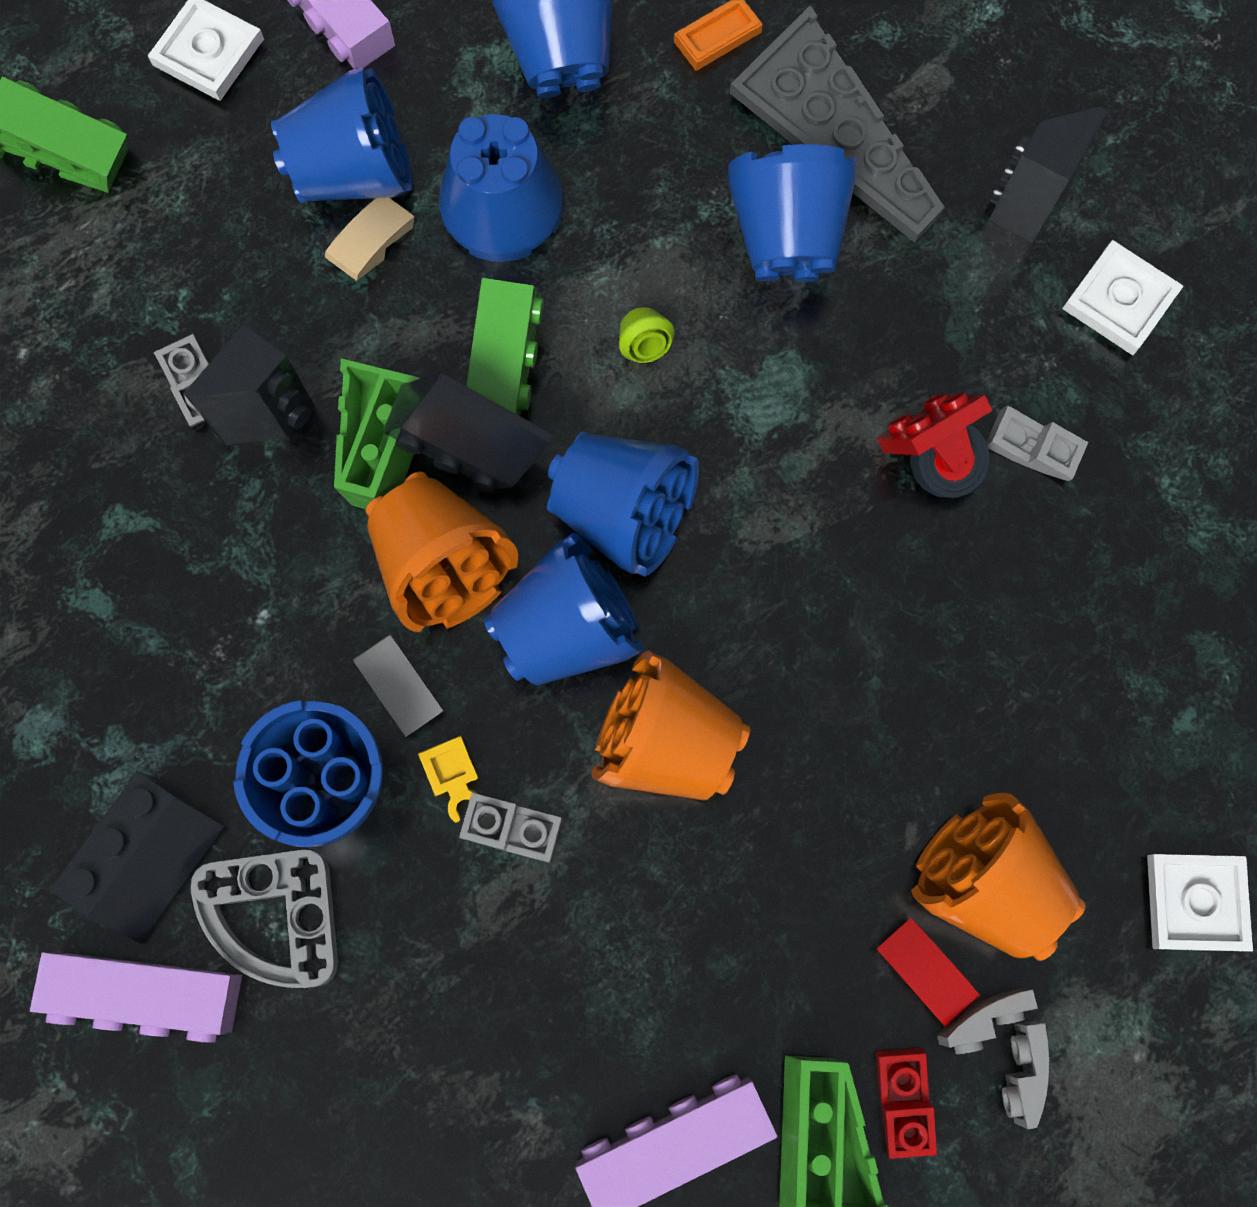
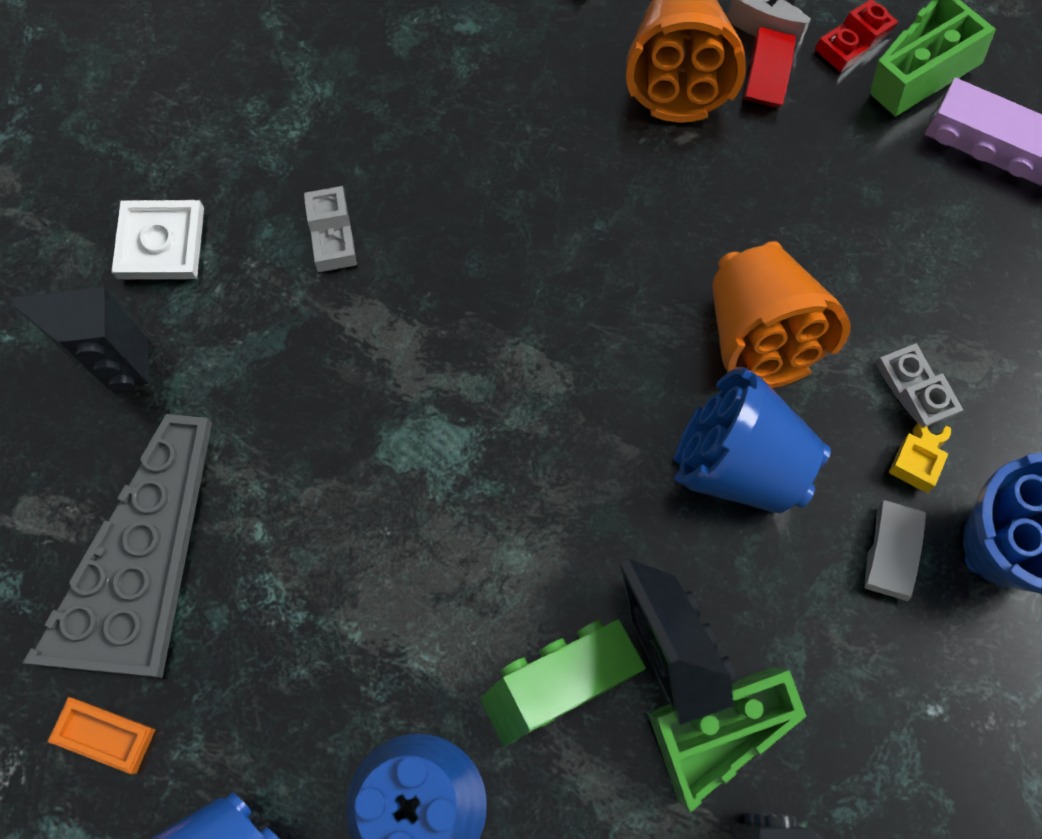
camera: 125 degrees left, 5 degrees down
(436, 553) = (783, 595): orange cone -> none
(624, 496) = (621, 477): blue cone -> none
(645, 335) = (457, 574): lime cone -> none
(793, 208) = (262, 519): blue cone -> none
(944, 448) = (381, 287): red plate -> none

